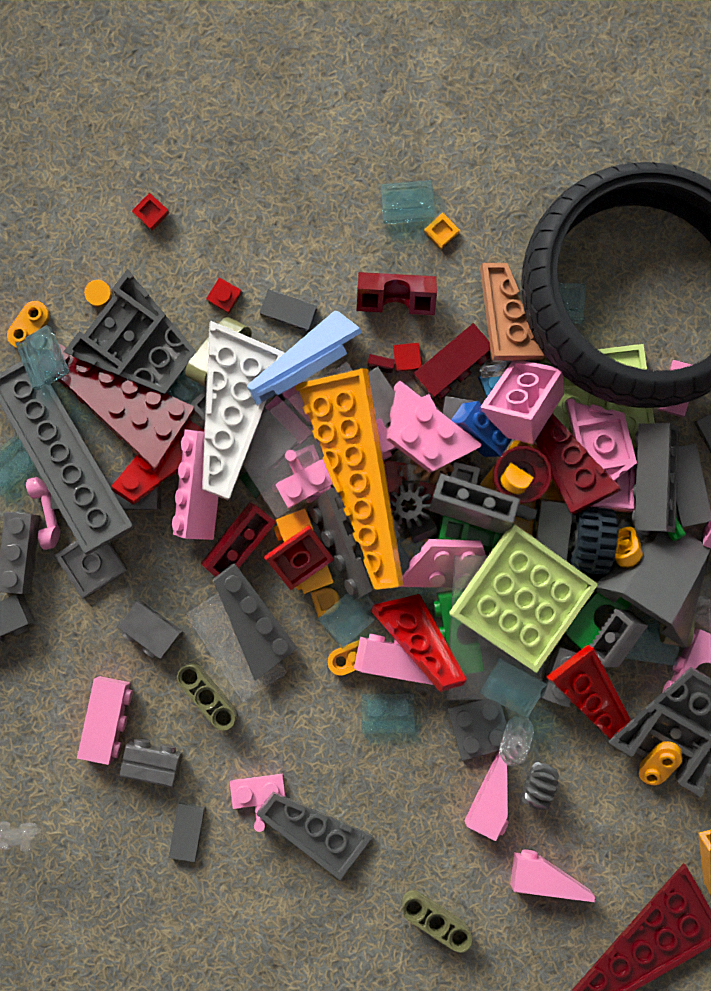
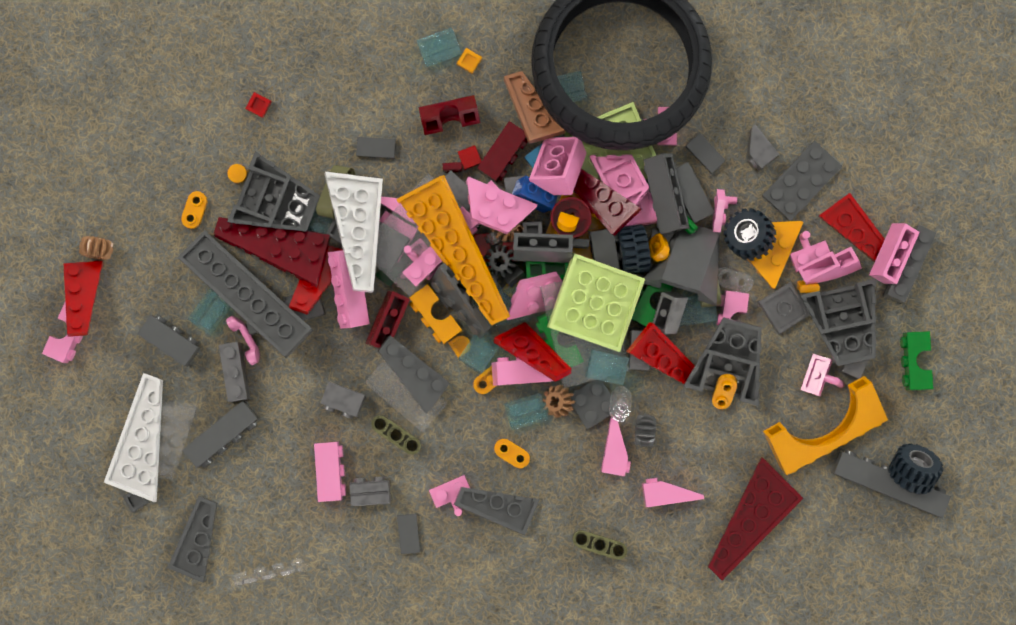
camera: 15 degrees left, 0 degrees up
(42, 357) = (212, 230): clear light blue plate -> none
(90, 571) = (287, 370): flat silver tile -> none
(224, 295) = (327, 150): red plate -> none
(299, 557) = (433, 318): red slope -> none
(305, 358) = (399, 177): wedge -> none
(356, 762) = (512, 453): none -> light orange plate
(440, 723) = (558, 394): none -> medium nougat gear
(494, 368) = (532, 149): clear tile -> none

